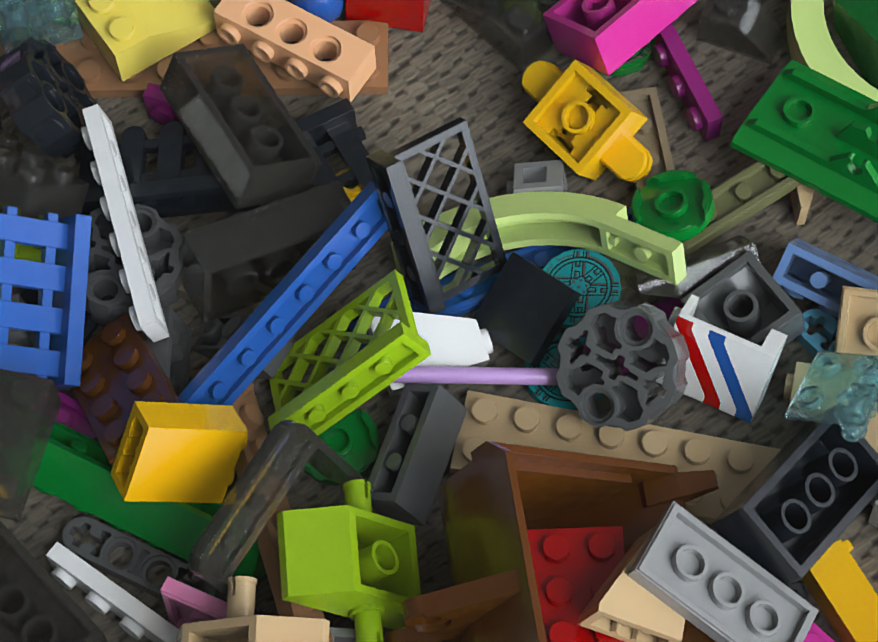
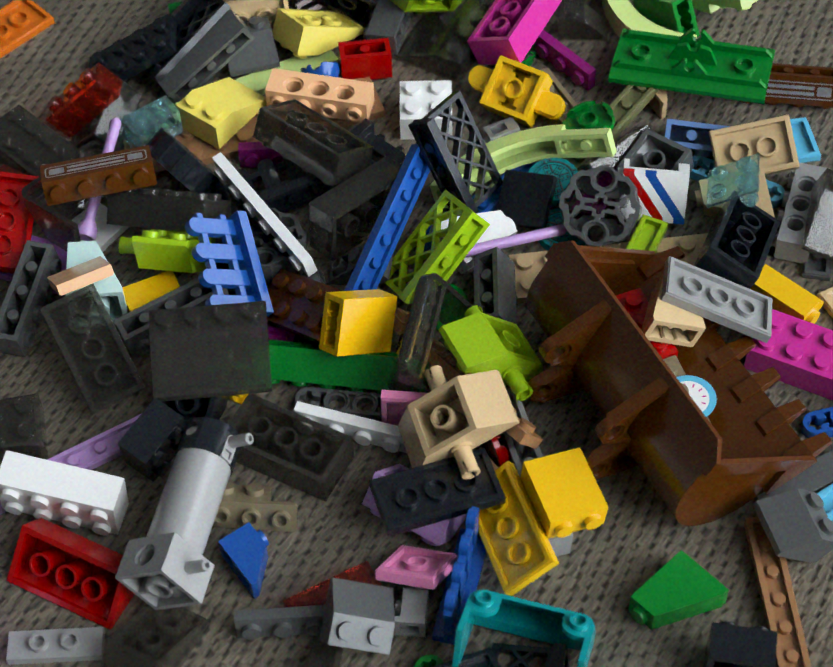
camera: 20 degrees left, 10 degrees down
(440, 93) = (418, 99): none -> white brick
(678, 433) = (648, 234): none -> lime tile

